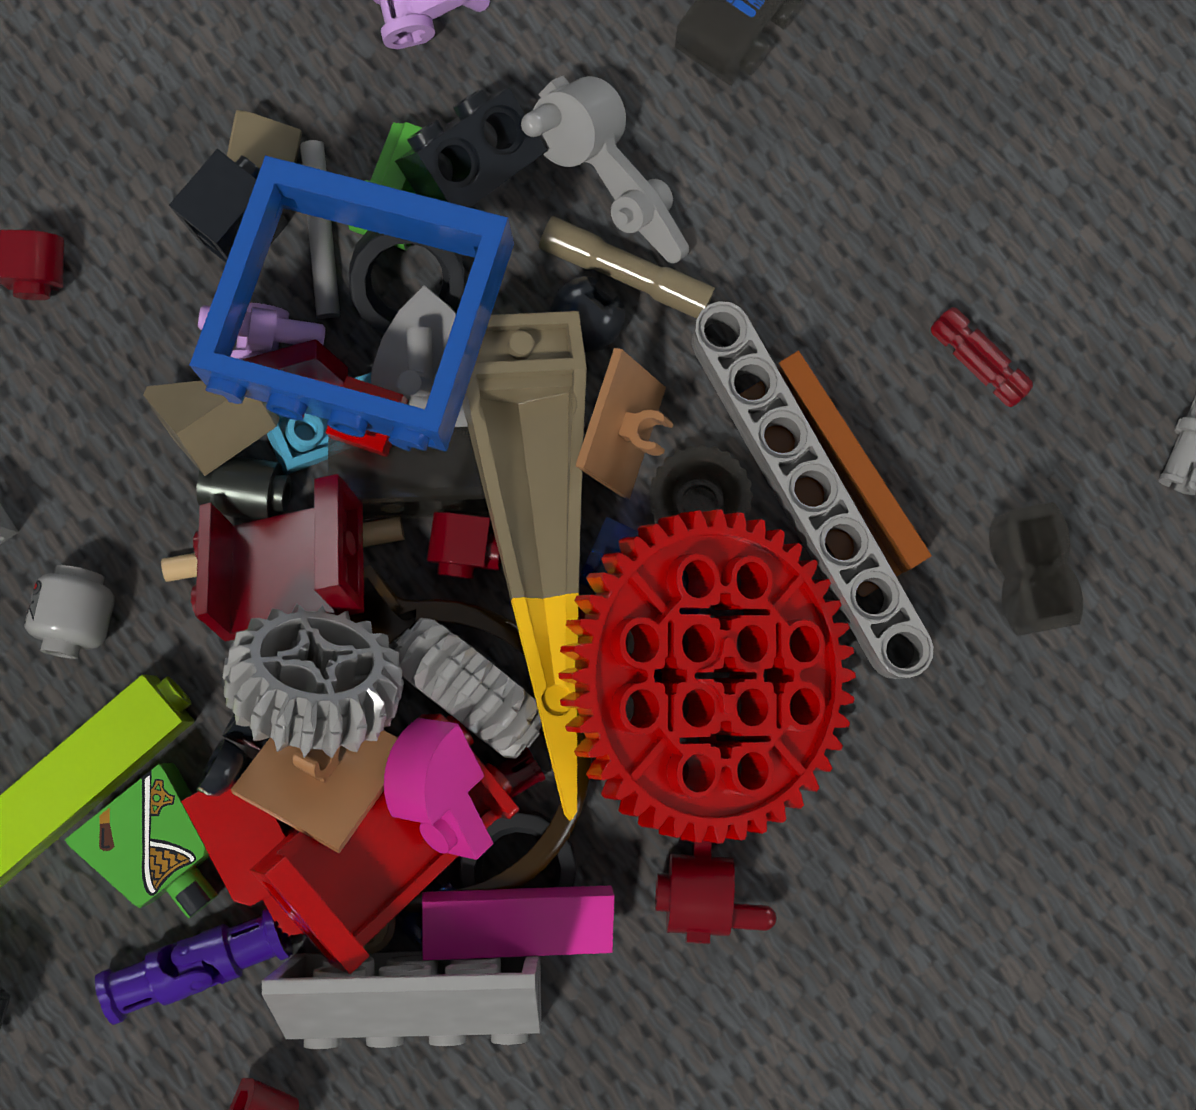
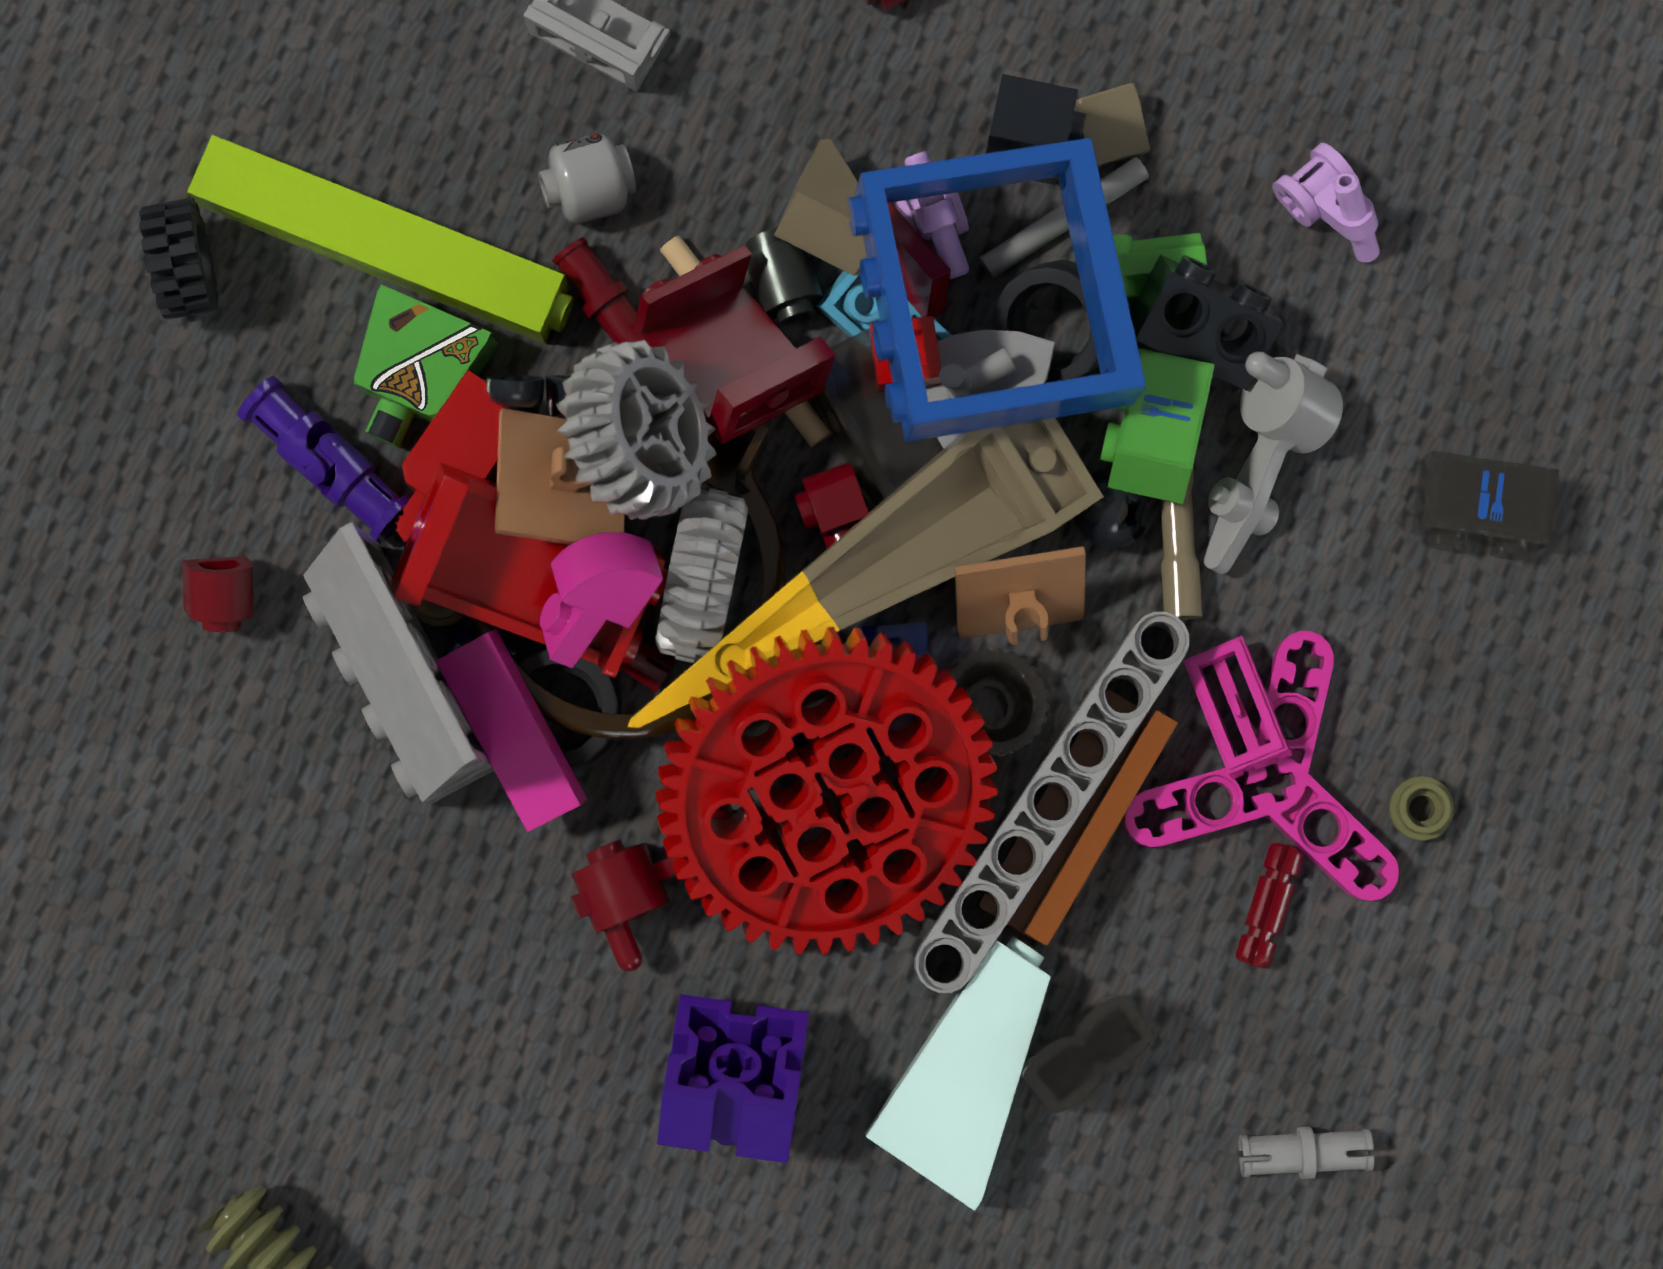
camera: 65 degrees right, 0 degrees up
(173, 651) = (598, 290): none -> dark red pin
(553, 239) = (1162, 429): none -> bright green brick
(857, 301) = (1257, 755): none -> dark pink tile
(904, 287) = (1299, 798): none -> dark pink piece
(916, 880) = (732, 1078): none -> dark purple brick
(971, 178) = (1441, 808): none -> olive plate
(1005, 684) = (962, 1082): none -> light aqua slope

